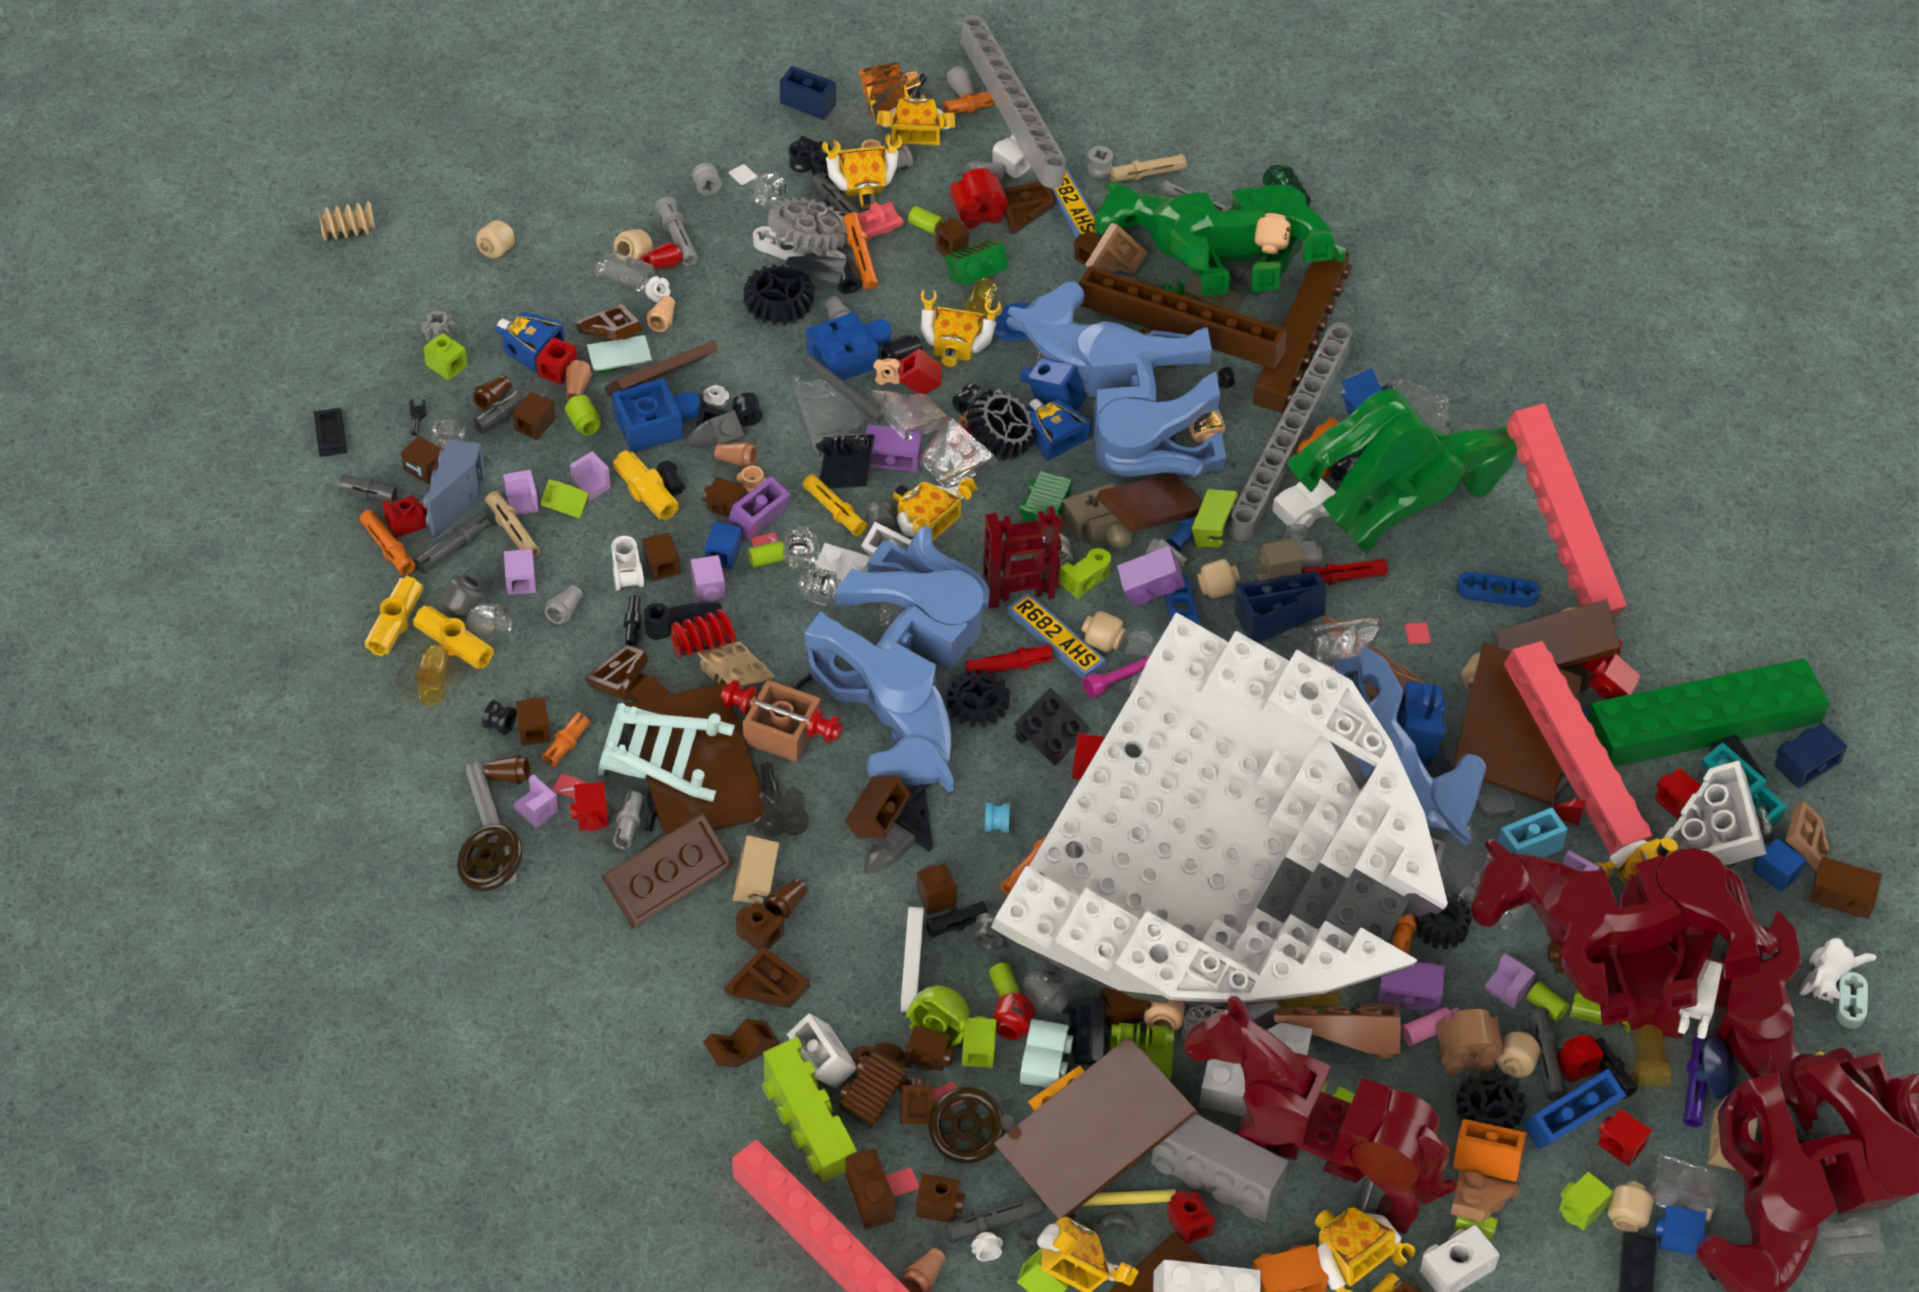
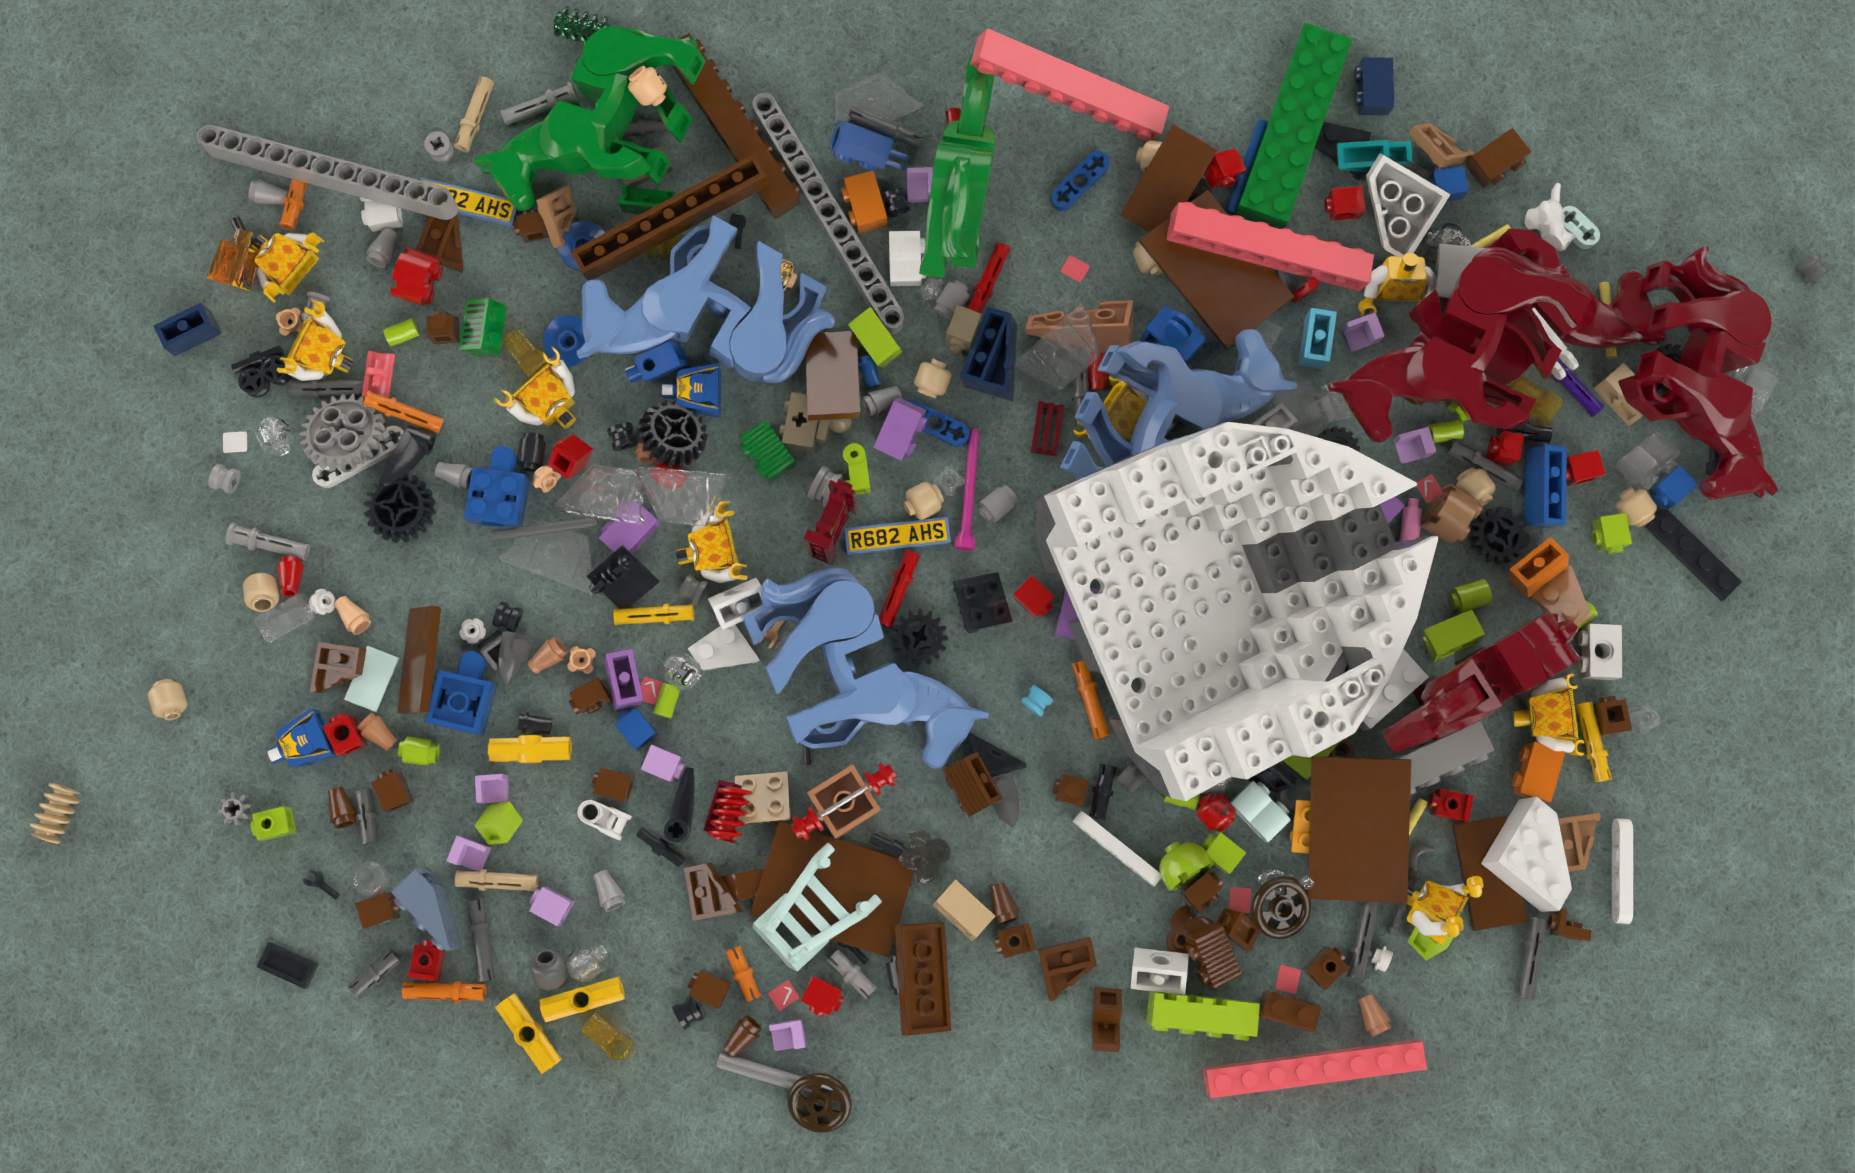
camera: 55 degrees left, 30 degrees up
(819, 586) = (731, 683): clear head -> none
(1716, 1067) = (1584, 372): dark blue dish -> none

